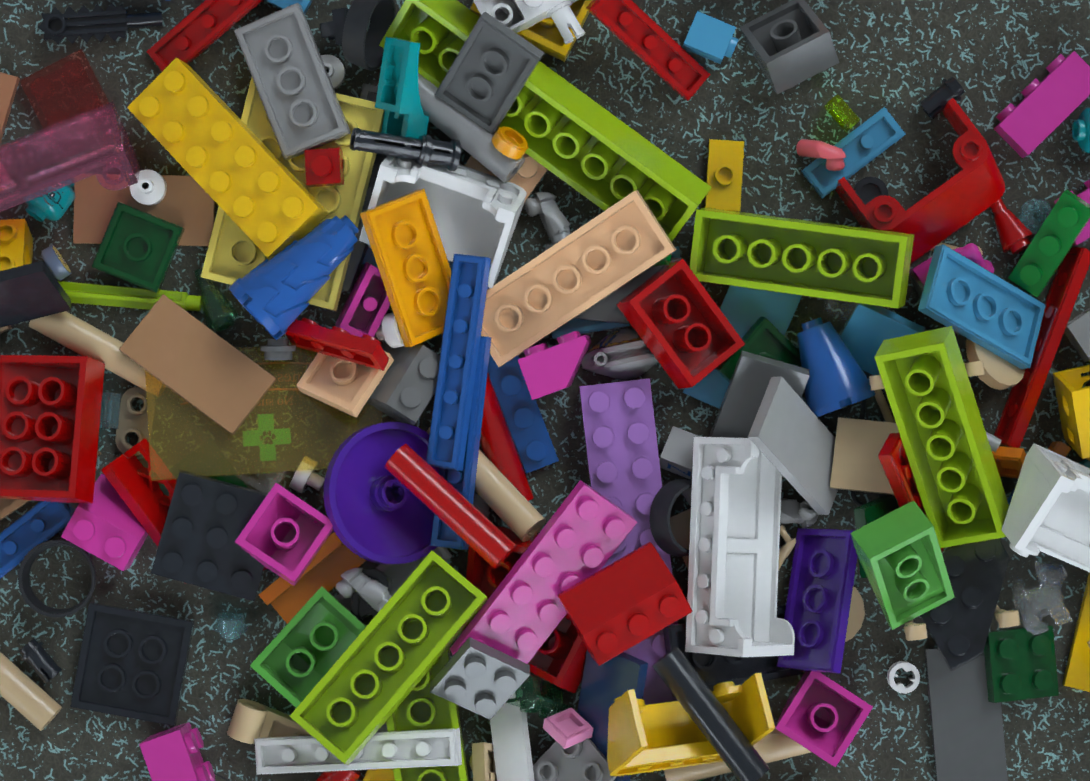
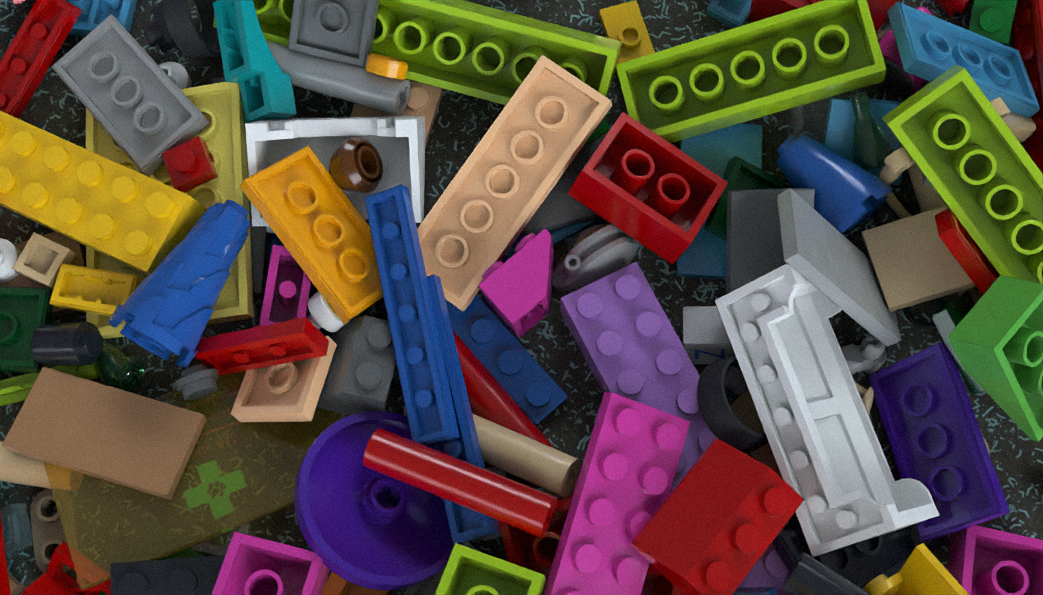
camera: 20 degrees left, 15 degrees down
(184, 203) = (42, 260): none -> tan plate
(185, 281) = (66, 344): none -> black brick
(220, 246) = (92, 289): none -> yellow plate
(304, 478) = (276, 523): white tile -> none
(422, 150) = (290, 103): black pin -> none
(457, 219) = (356, 166): none -> reddish brown cone
(550, 215) = (450, 133): light grey arm -> none
(872, 340) = (869, 141): none -> clear green cone

